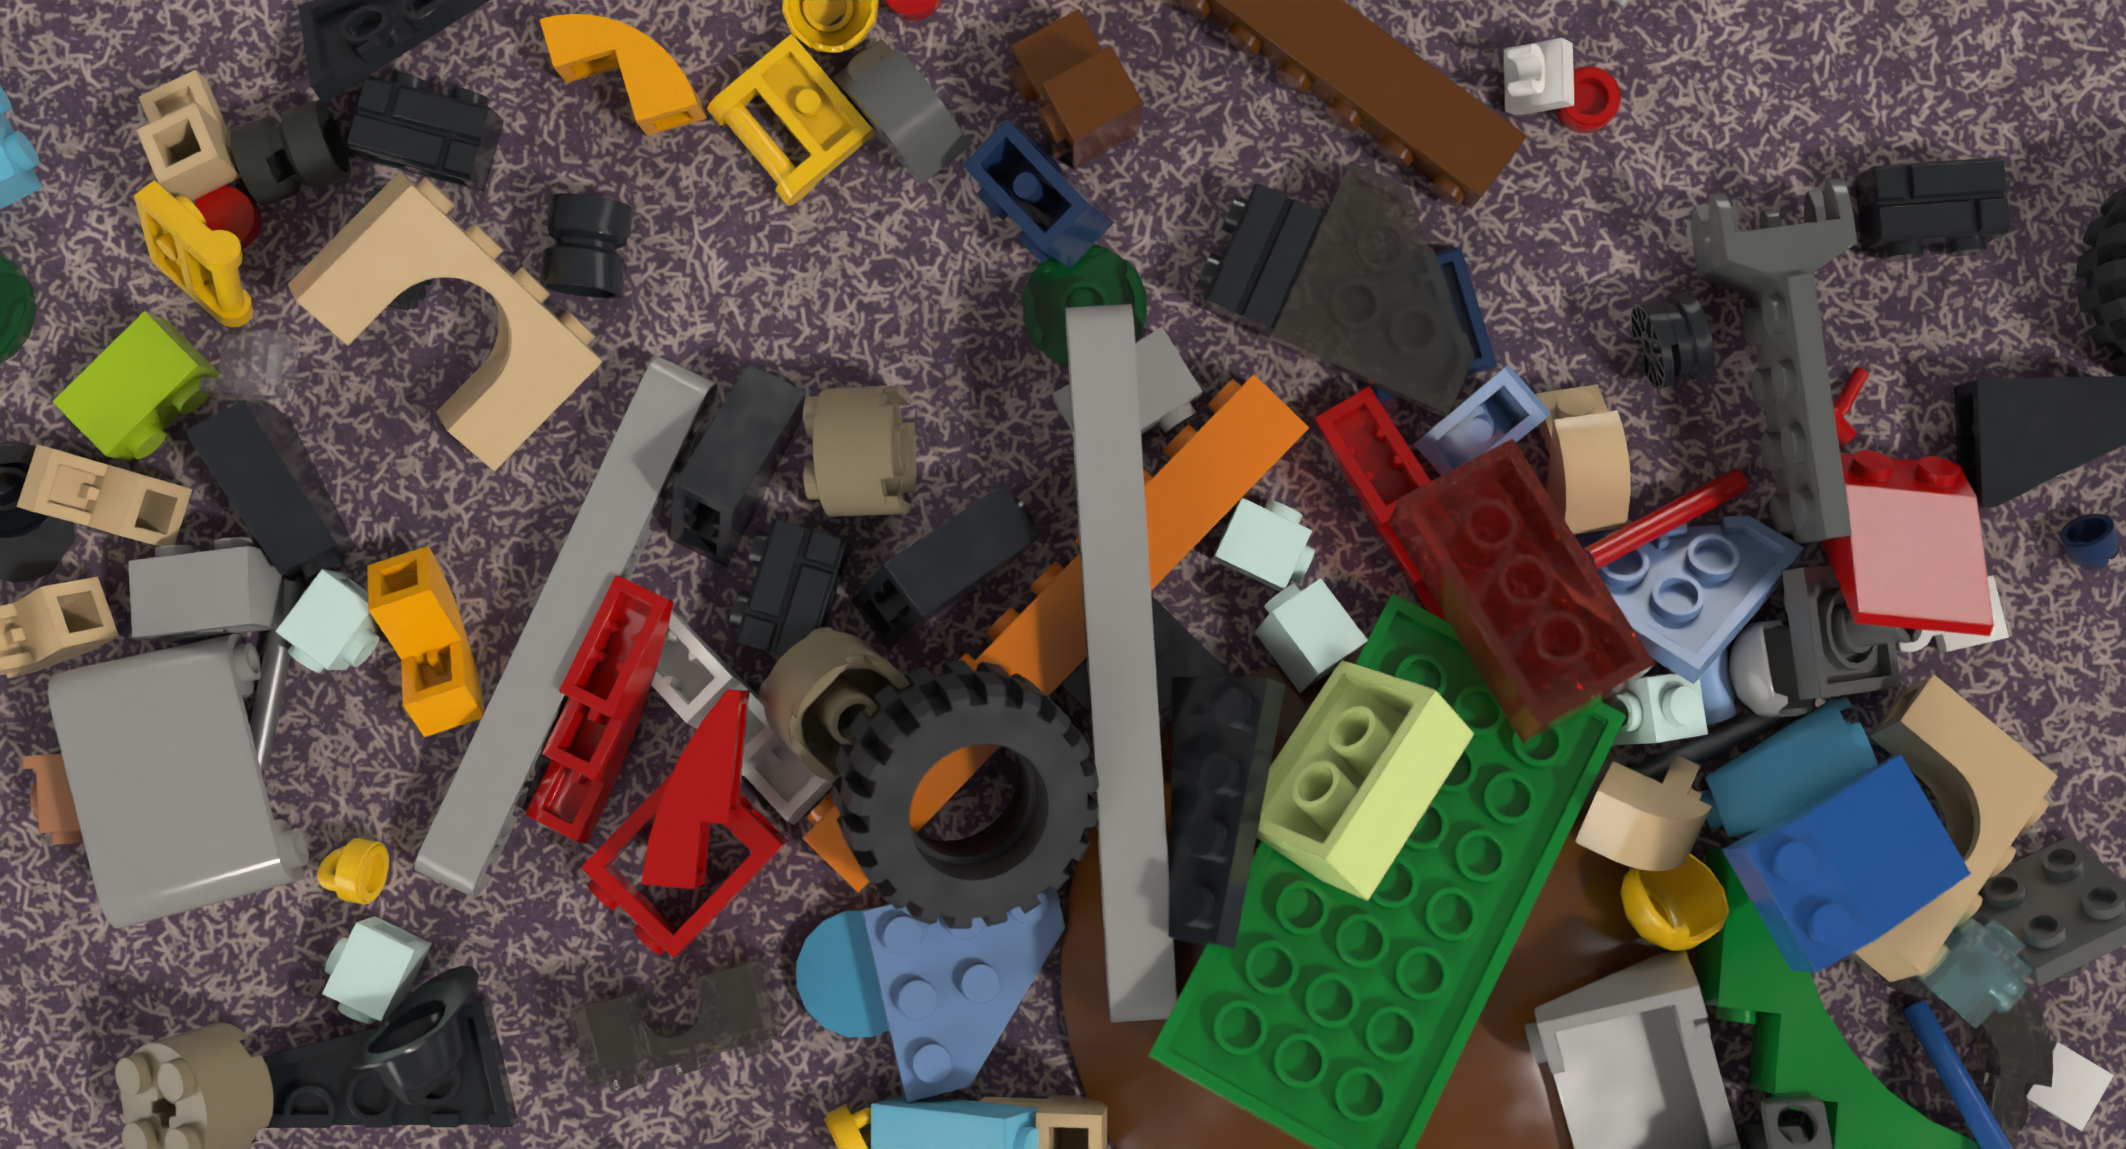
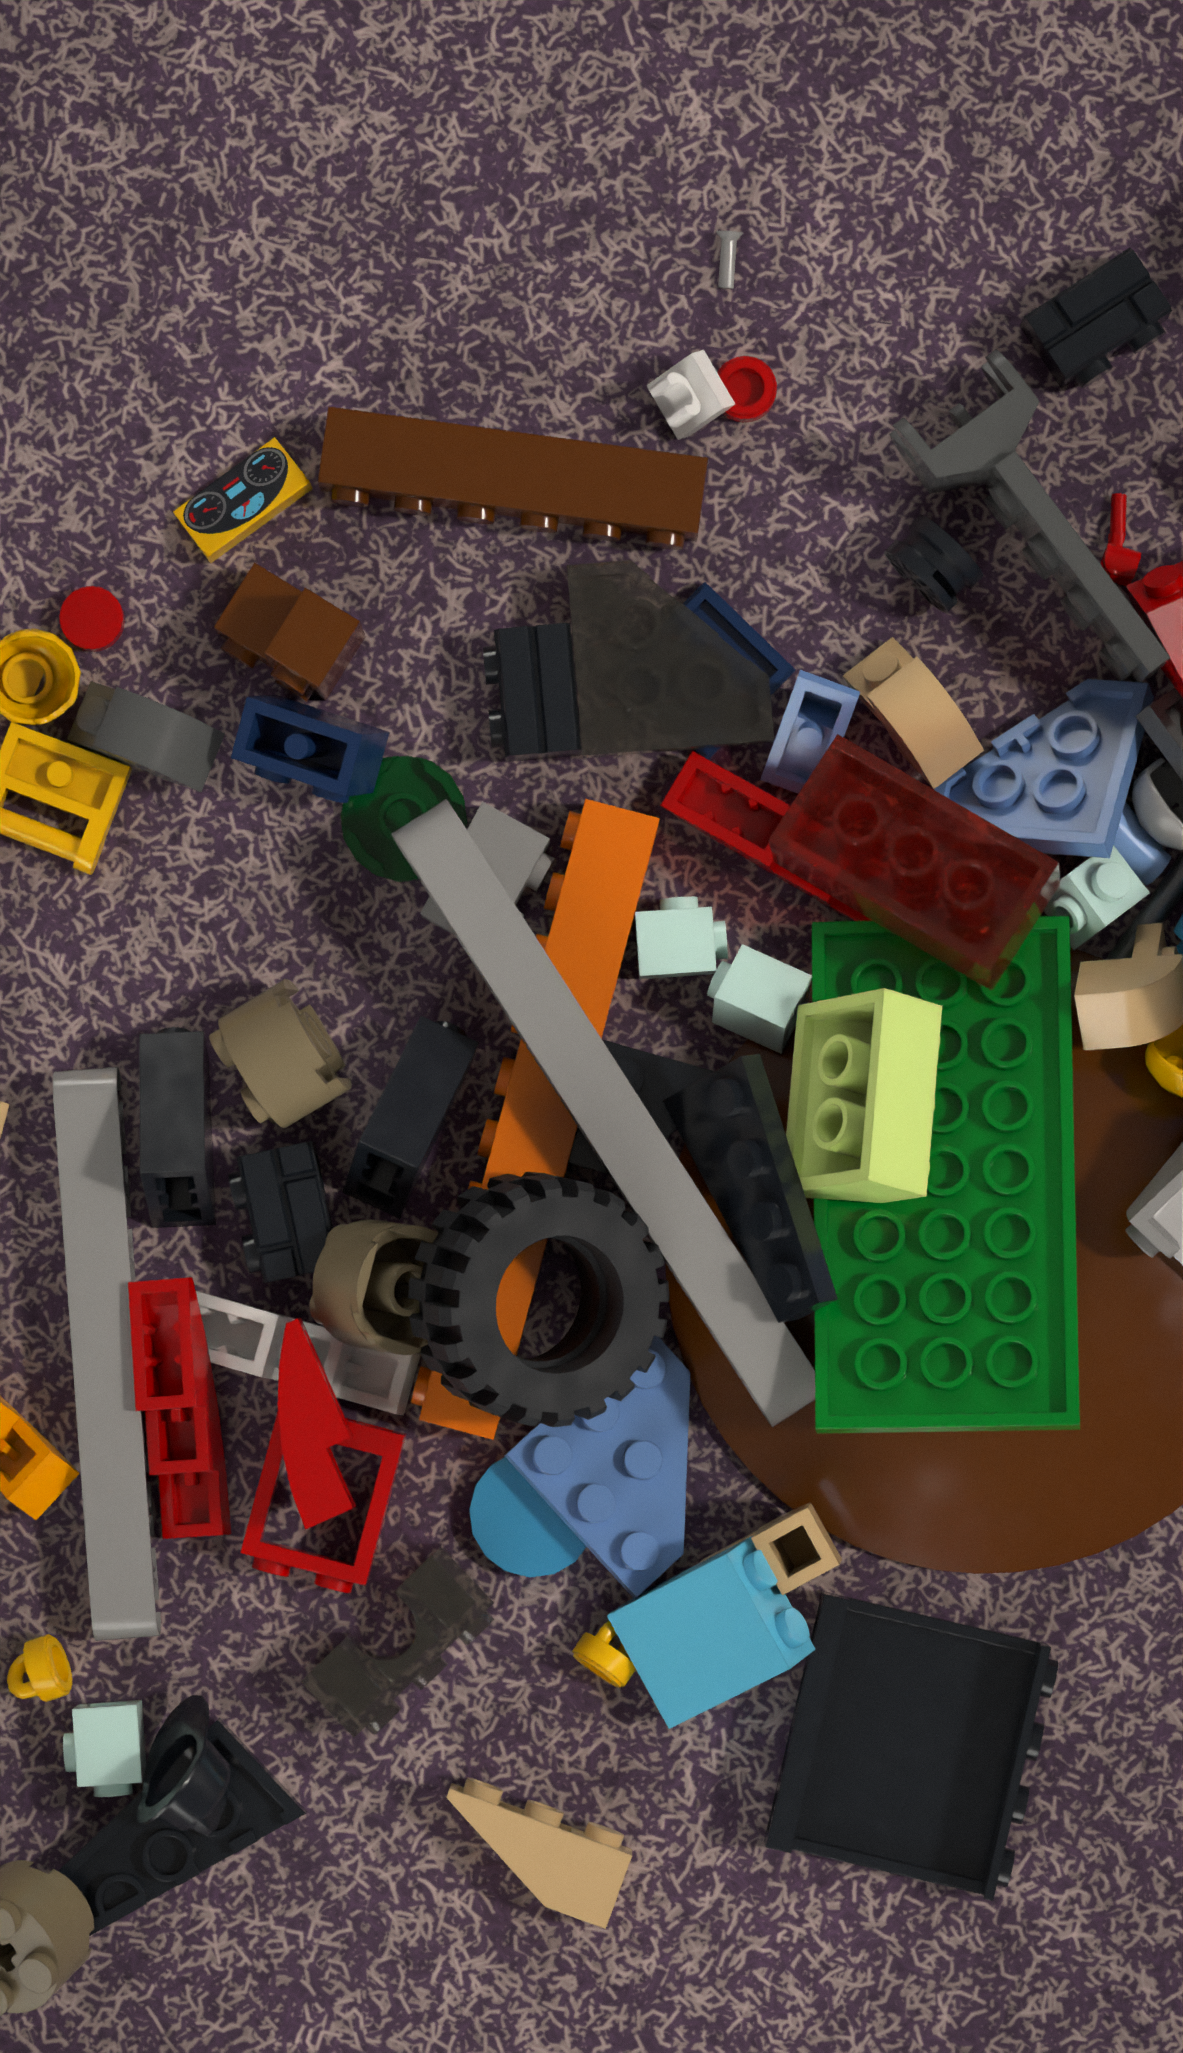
camera: 30 degrees left, 0 degrees up
(1666, 518) = (1014, 725): red bar -> none

